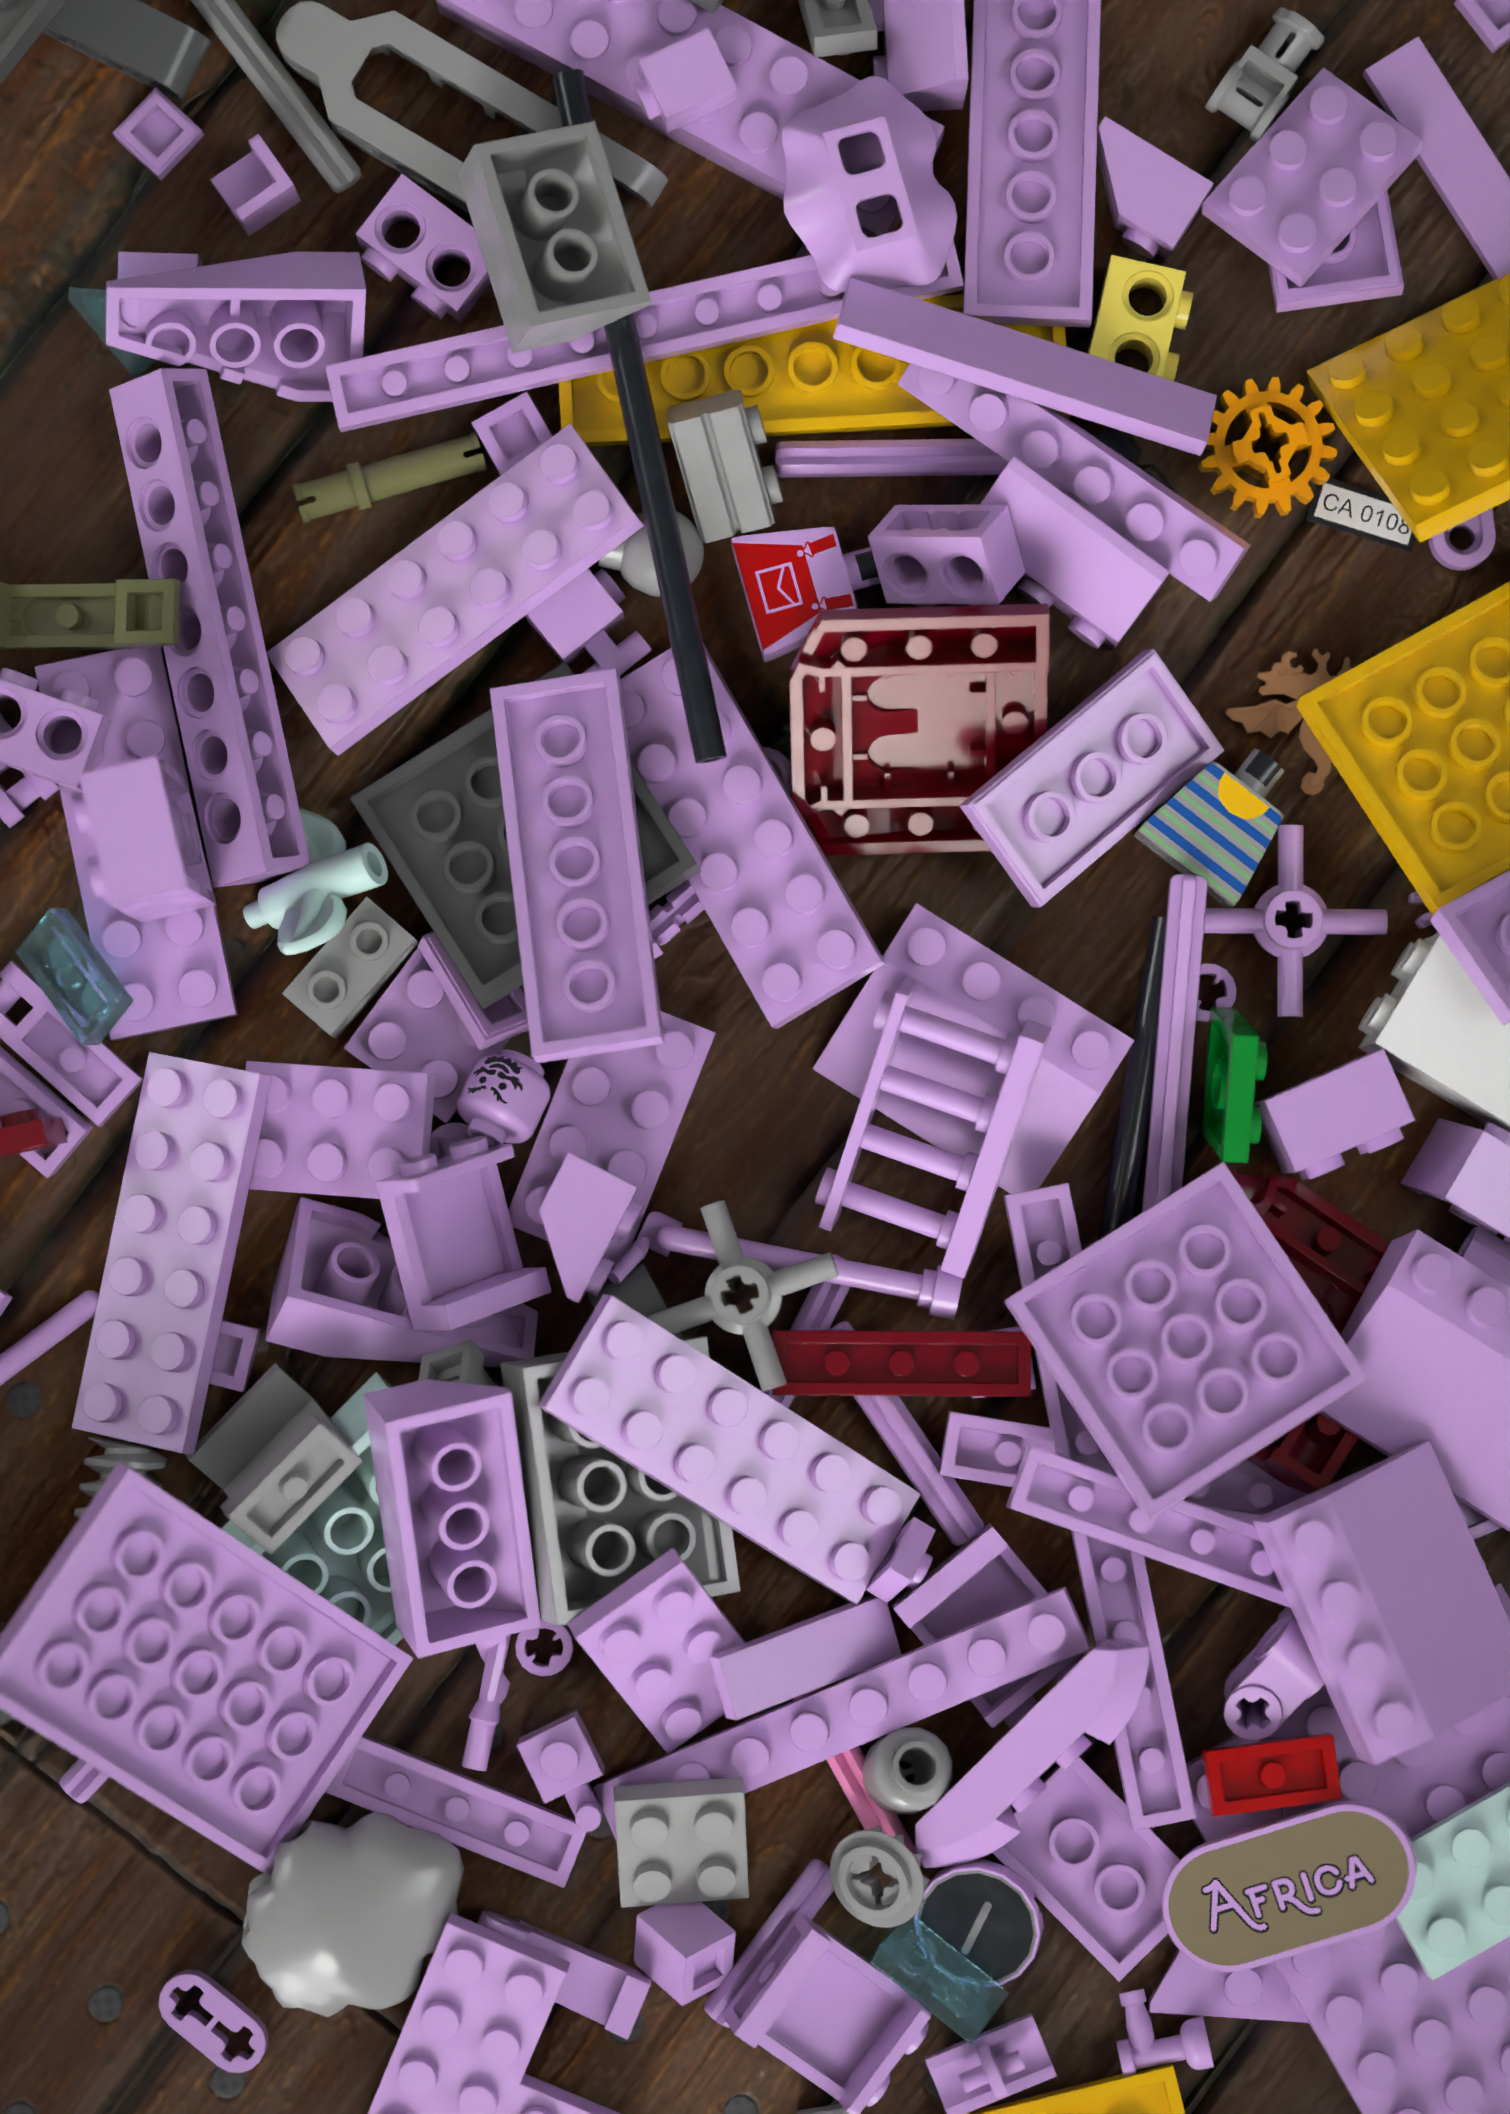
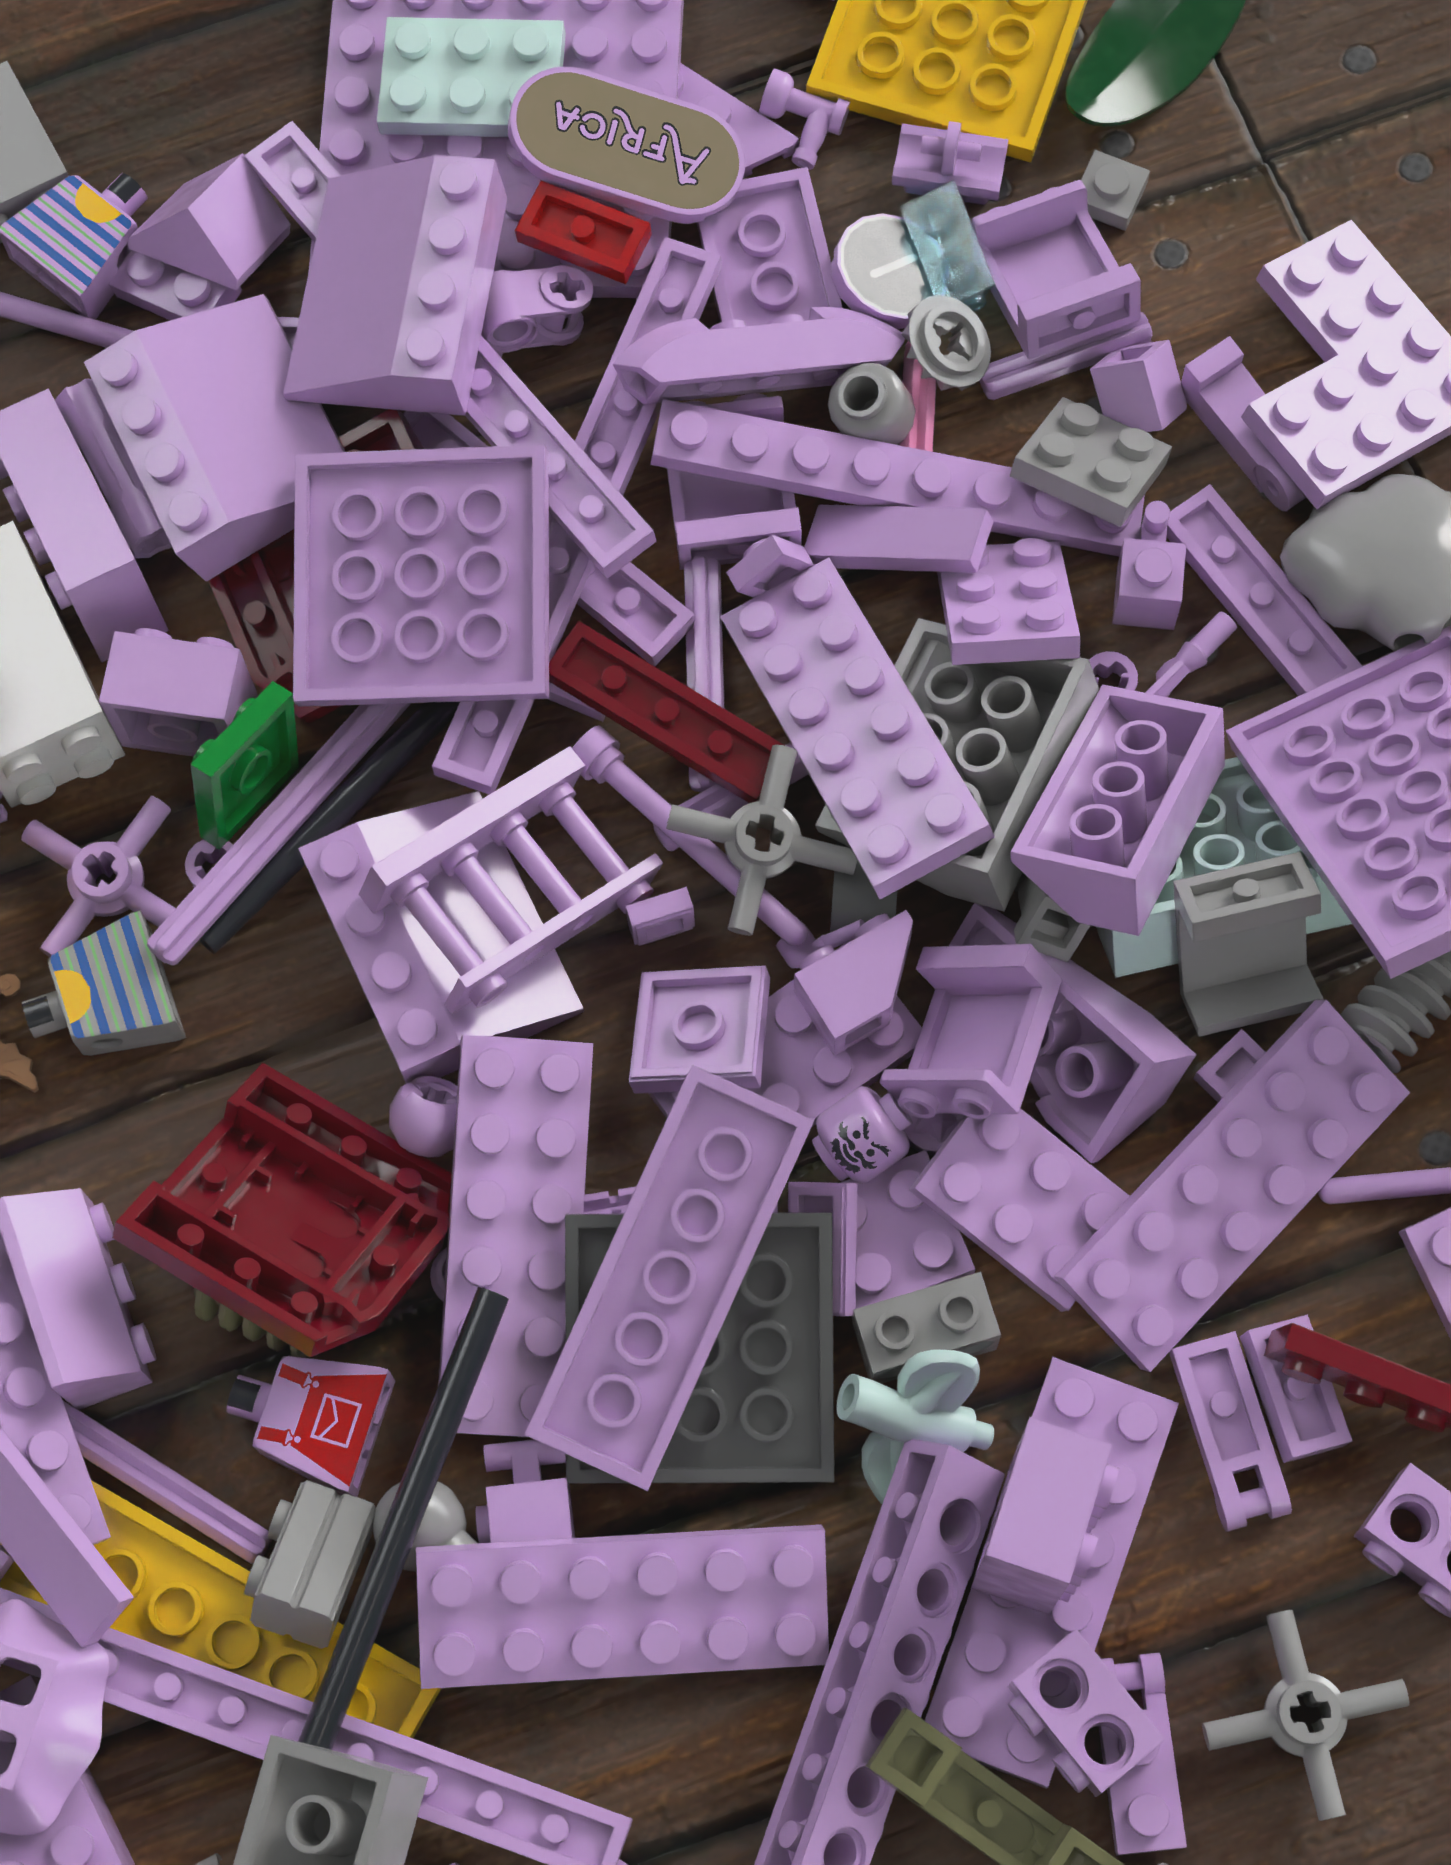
camera: 140 degrees left, 15 degrees down
(74, 976) = (1178, 1473): clear light blue plate -> none
(388, 477) = (617, 1755): olive pin -> none
(511, 432) = (479, 1720): lavender plate -> none
(696, 1104) = (699, 1020): none -> lavender tile
(794, 1184) = (660, 916): none -> lavender tile
(878, 887) = (425, 1116): none -> lavender piece
(946, 554) = (171, 1354): lavender brick -> none
(1092, 778) = (183, 1090): lavender tile -> none

